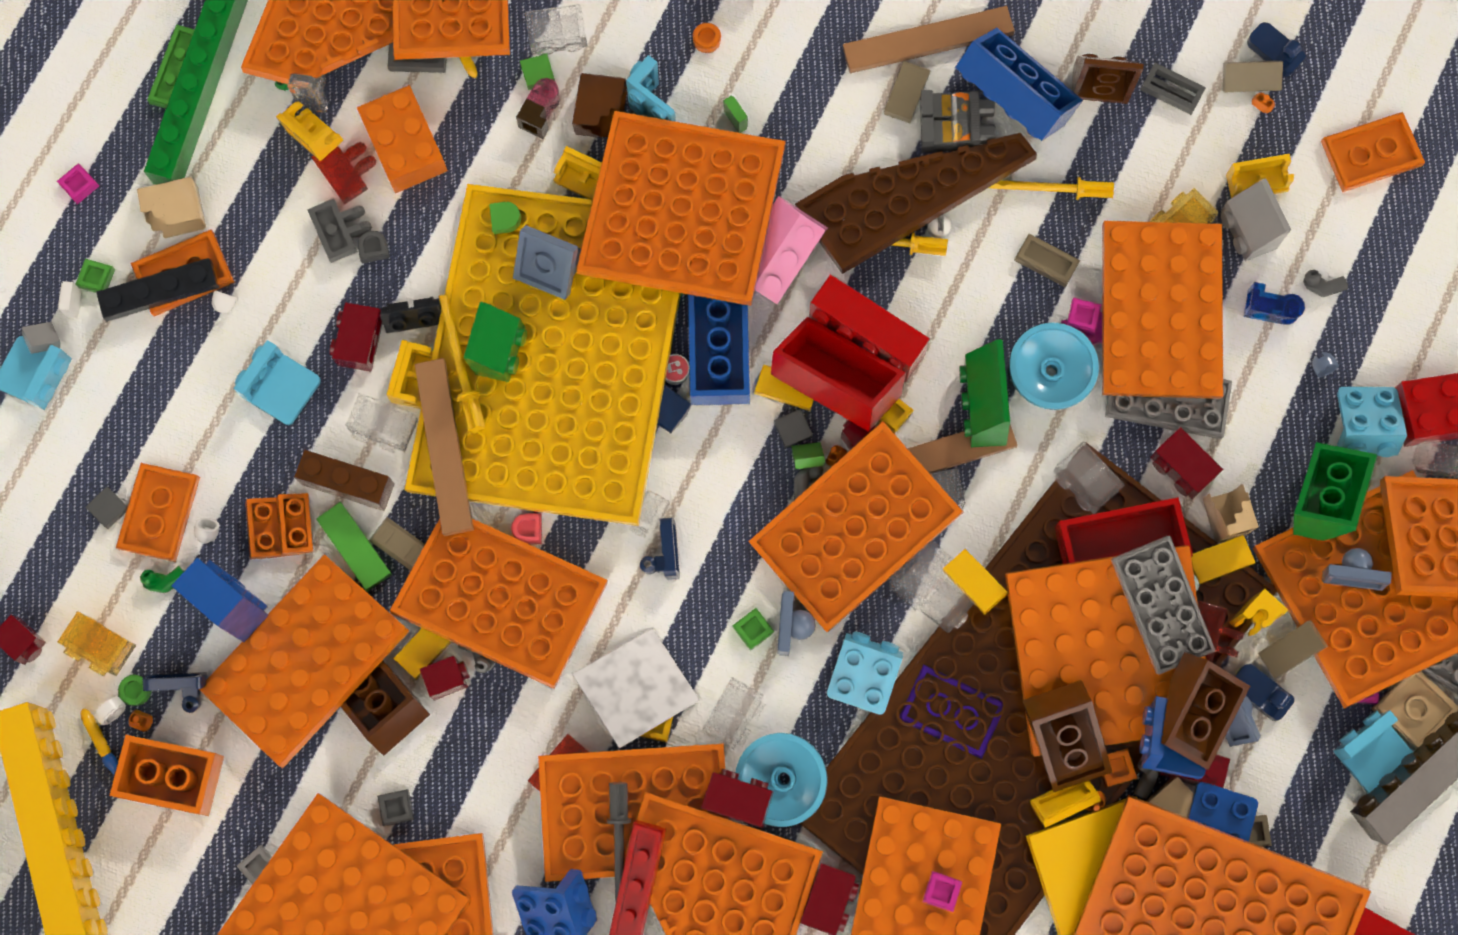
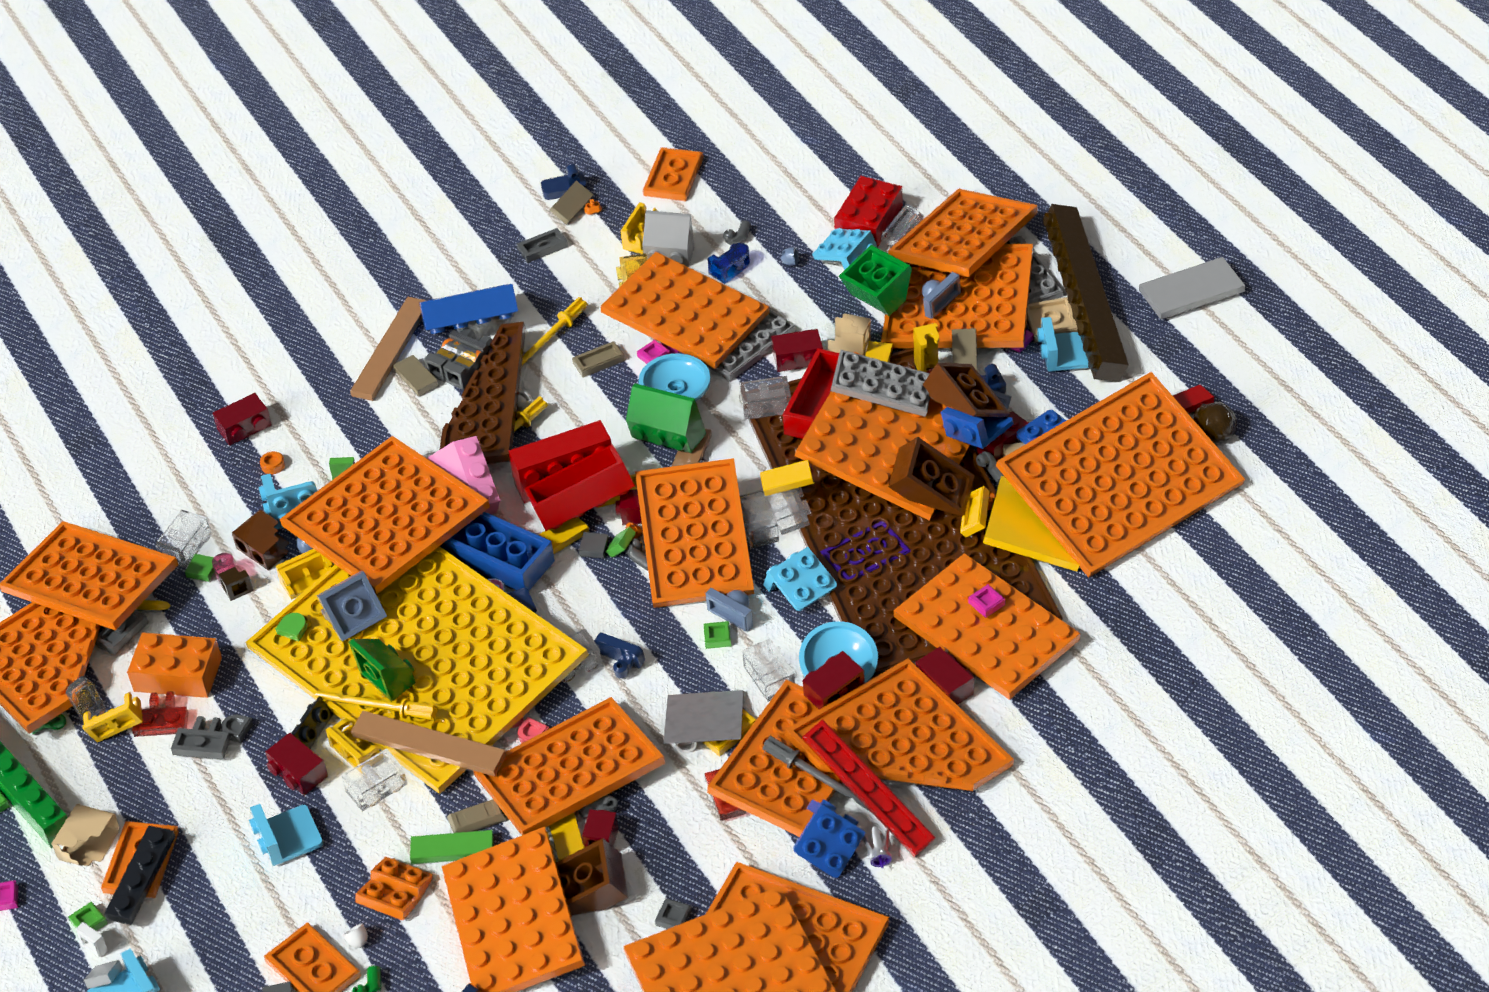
camera: 55 degrees left, 30 degrees down
(221, 598) = (427, 919): blue brick -> none
(223, 302) = (188, 839): white hinge -> none
(344, 480) = (397, 822): reddish brown brick -> none
(1105, 78) = (505, 260): reddish brown slope -> none
(1121, 768) = (980, 478): orange tile -> none

